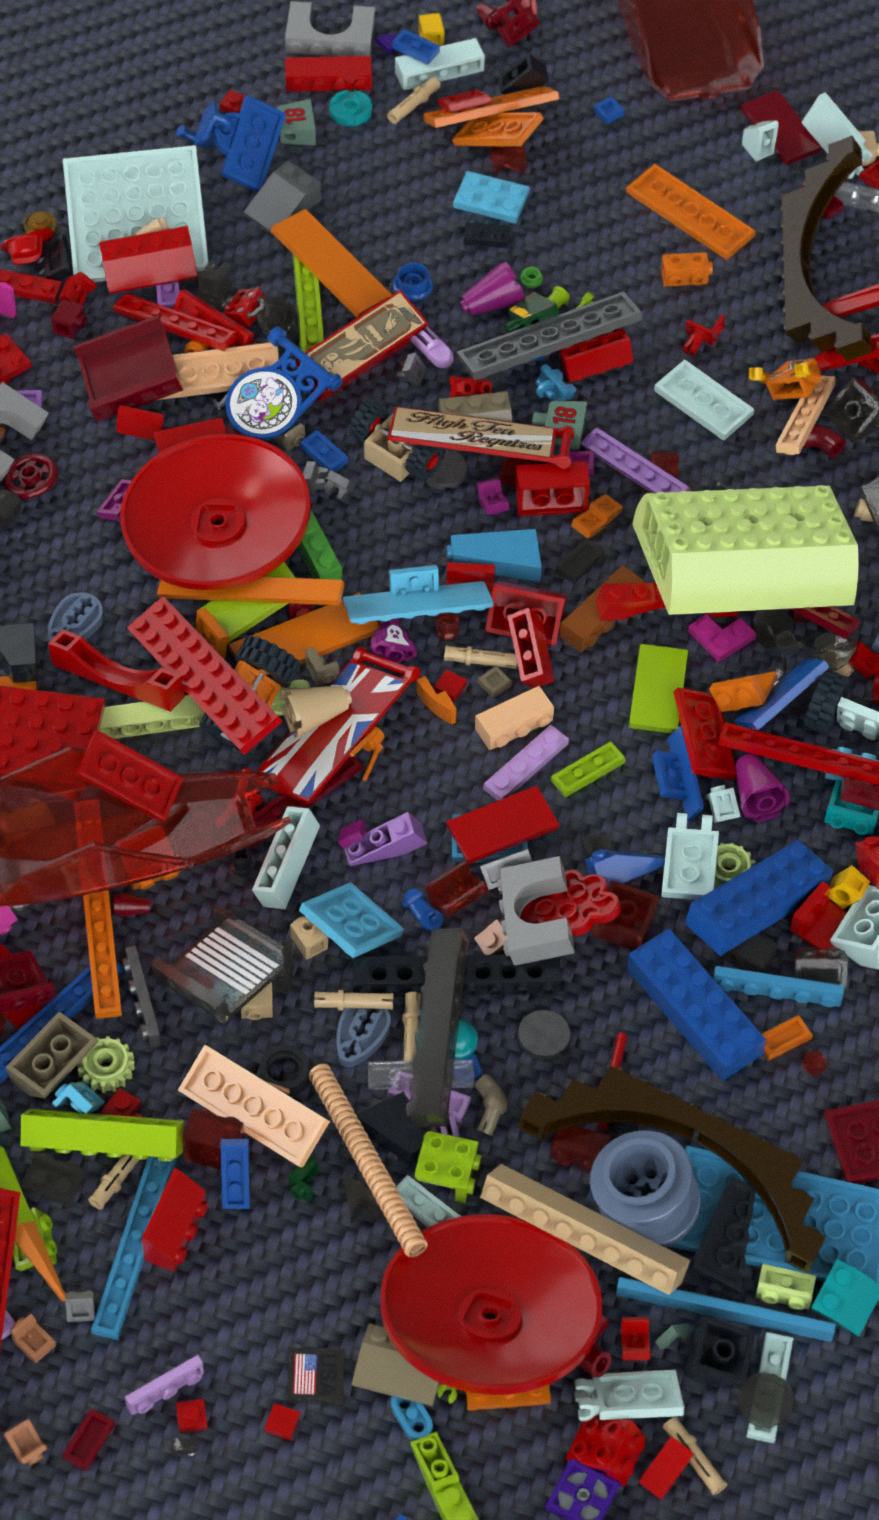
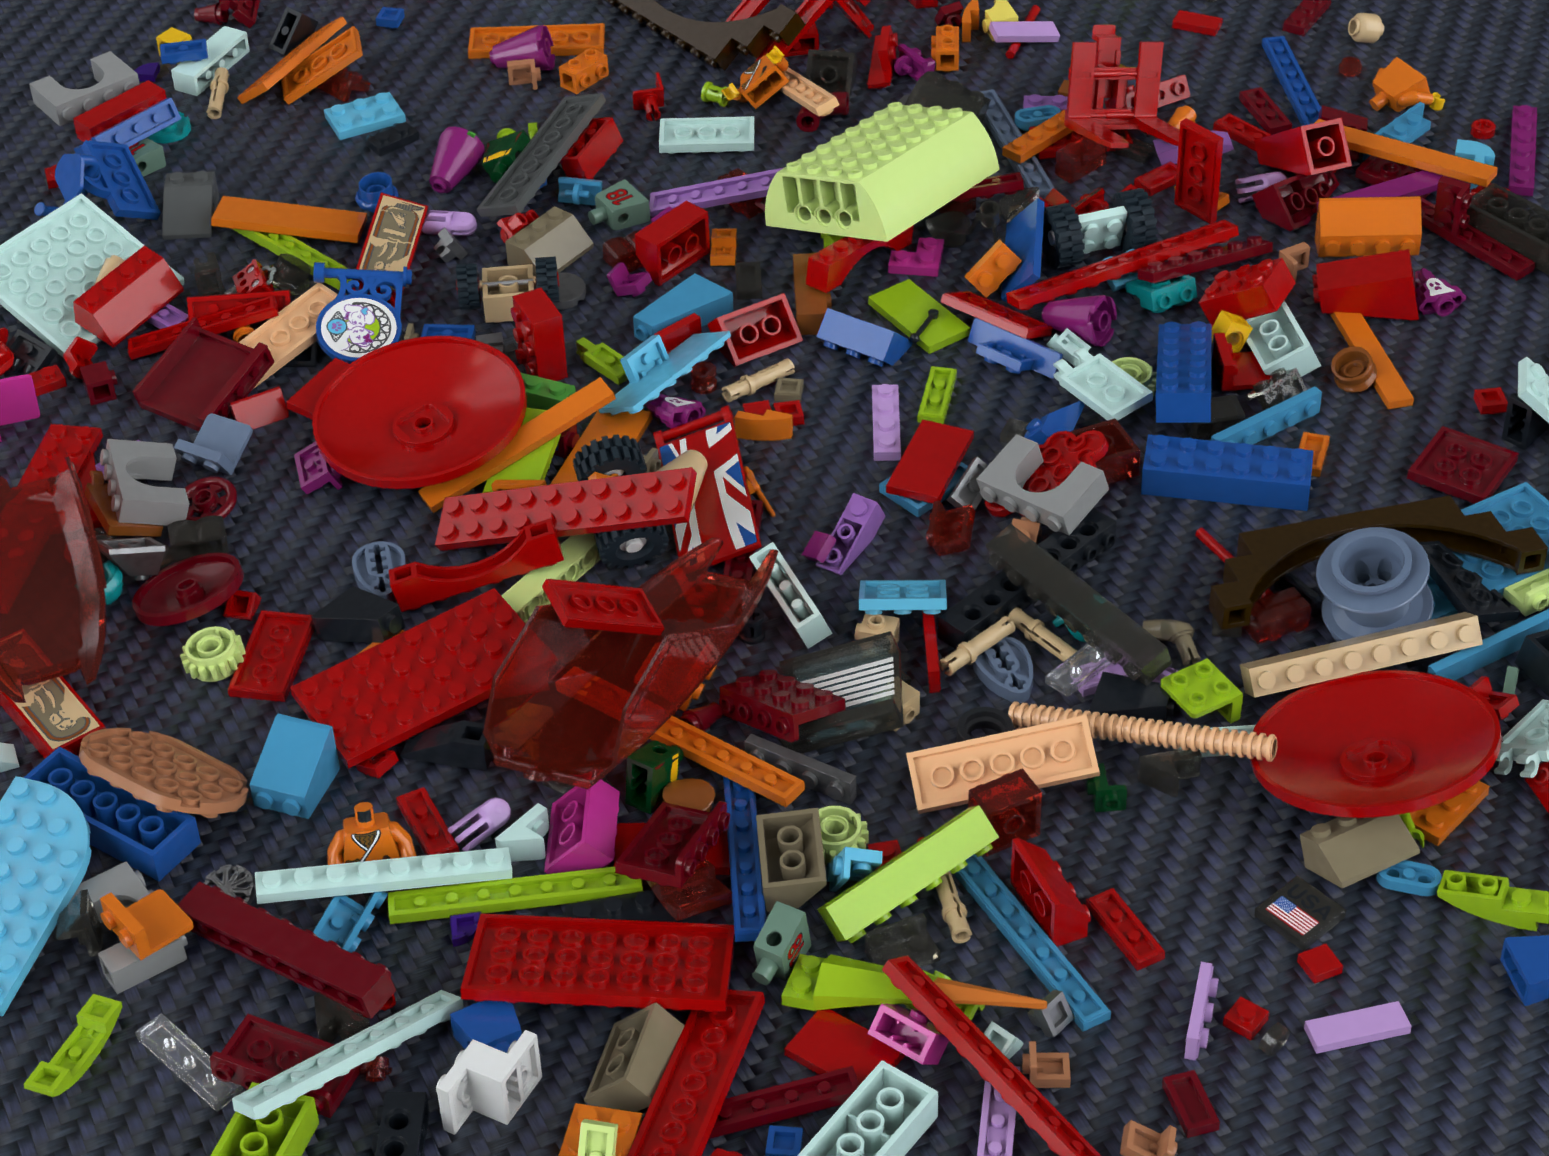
camera: 40 degrees left, 15 degrees down
(32, 1296) = (1003, 1040): none -> light aqua slope
(50, 923) = (649, 773): none -> dark green torso
(55, 959) = (690, 793): none -> dark orange piece
(79, 435) = (216, 445): none -> sand blue bracket
(178, 936) = (777, 703): none -> dark red bracket
(199, 1288) = (1125, 929): none -> red tile
(235, 1173) = (1058, 814): blue plate -> none
(248, 1485) = (1357, 1027): none -> lavender tile
(308, 98) = (140, 125): none -> blue fence
(323, 980) = (931, 653): none -> red tile
(360, 506) = (539, 335): none -> red brick
(400, 550) = (602, 359): none -> lime hinge
(424, 913) = (951, 562): blue piece -> none
(463, 101) = (265, 68): red tile -> none
(470, 702) = (791, 407): none -> red tile
(480, 435) = (634, 212): flag -> none
(514, 718) = (840, 398): light nougat brick -> none
(531, 648) = (796, 342): red brick -> none
(544, 1034) = (1144, 571): flat silver tile -> none
(591, 678) = (862, 338): none -> slope
(641, 238) = (523, 72): none -> nougat bracket
(662, 221) = (531, 44): none -> magenta cone
(664, 696) = (932, 314): none -> black hinge
(755, 361) = (714, 94): none -> lime bush
(814, 1063) = (1359, 444): clear red plate -> none

